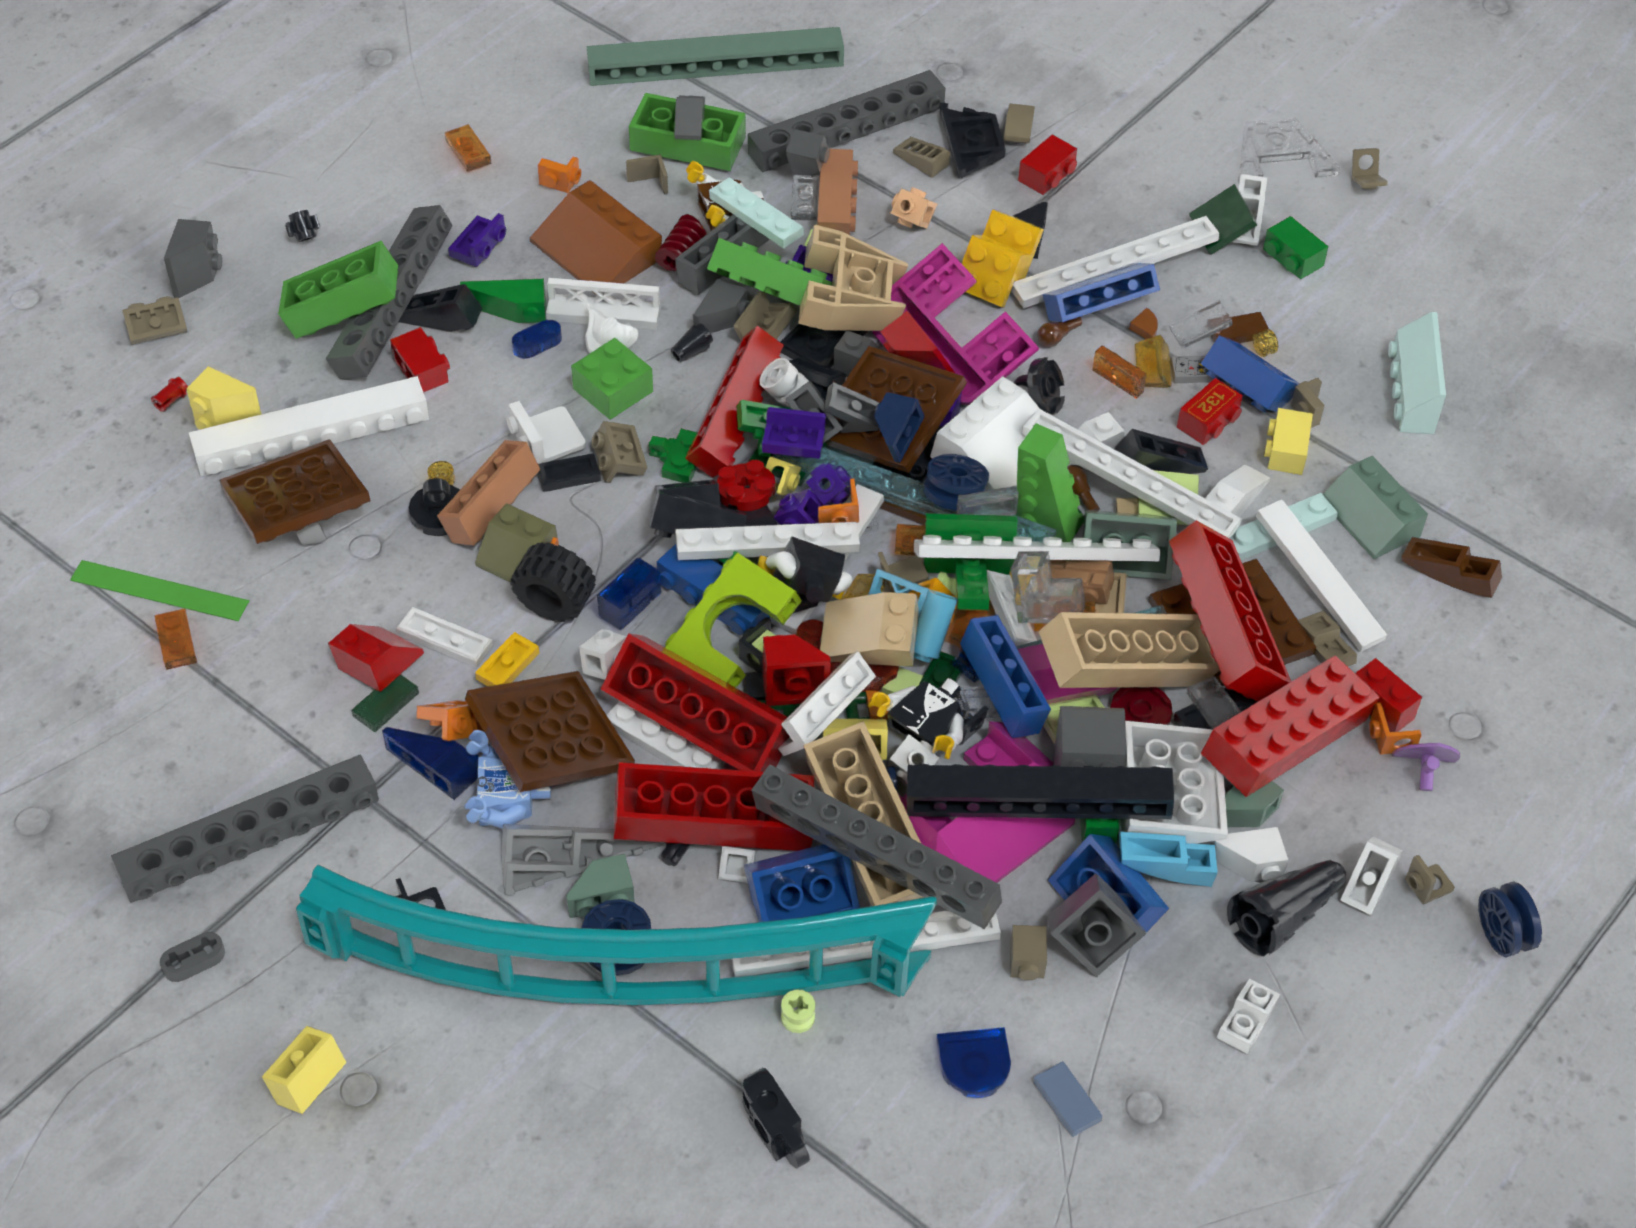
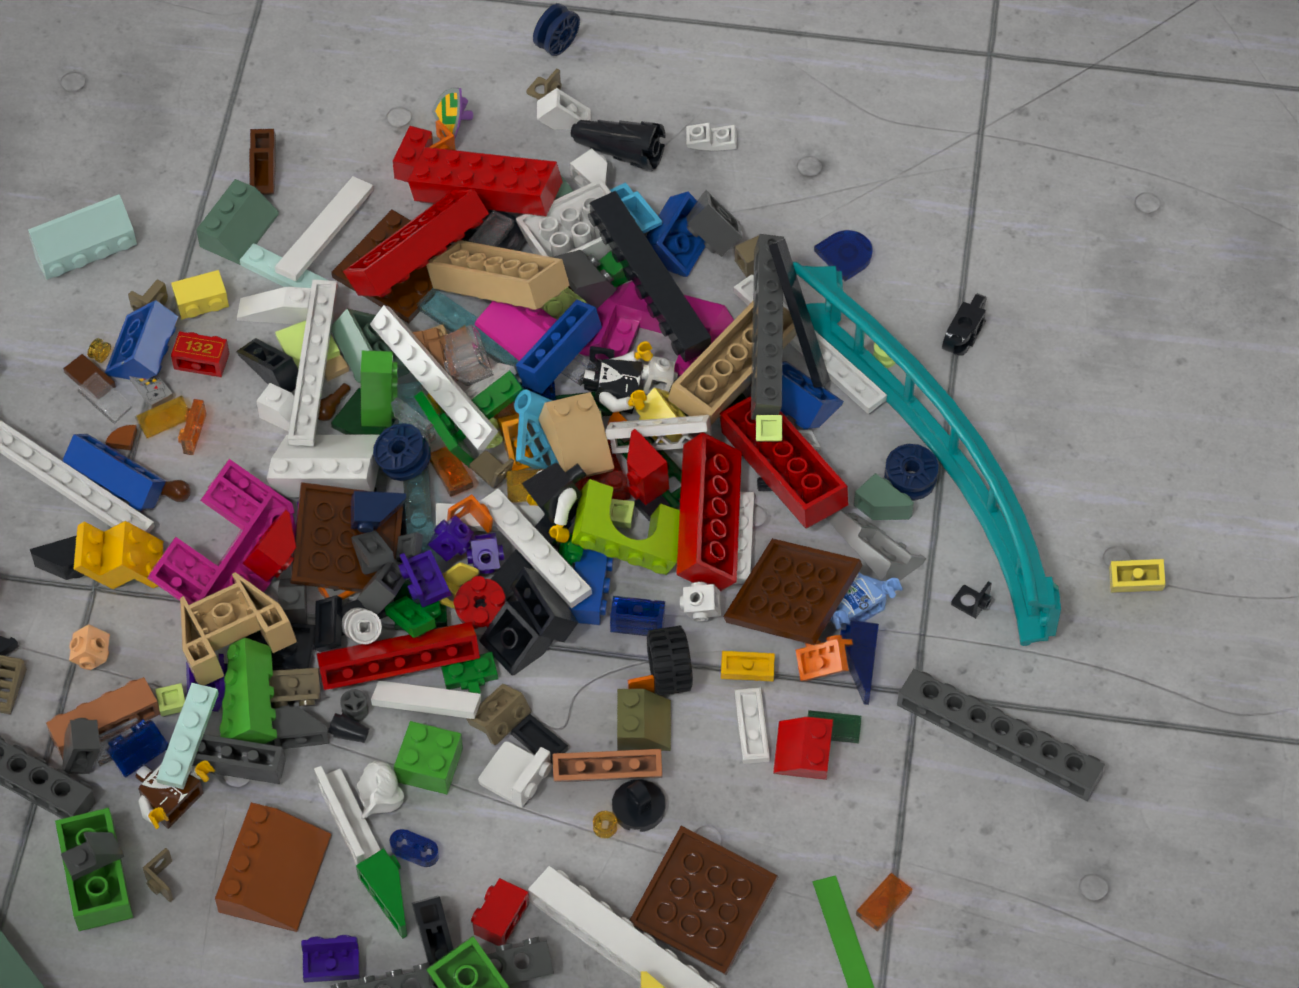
camera: 120 degrees left, 5 degrees up
(192, 956) = (1110, 705): dark grey beam -> none
(558, 175) = (206, 938): orange bracket -> none
(673, 405) = (426, 699): none -> white tile
(681, 237) = (239, 795): dark red piece -> none
(712, 357) = (354, 698): none -> dark grey wheel
(741, 785) = (768, 428): none -> yellowish green plate
(746, 646) = (625, 525): black bracket -> none
(782, 190) = (137, 747): none -> clear blue brick
(843, 448) = (410, 545): none -> dark grey tile
(891, 886) = (799, 313): none -> black tile
(1044, 384) = (250, 460): black tile -> none
(1067, 1099) = (835, 198): sand blue tile -> none
(1327, 639) = (376, 209): dark tan slope -> none

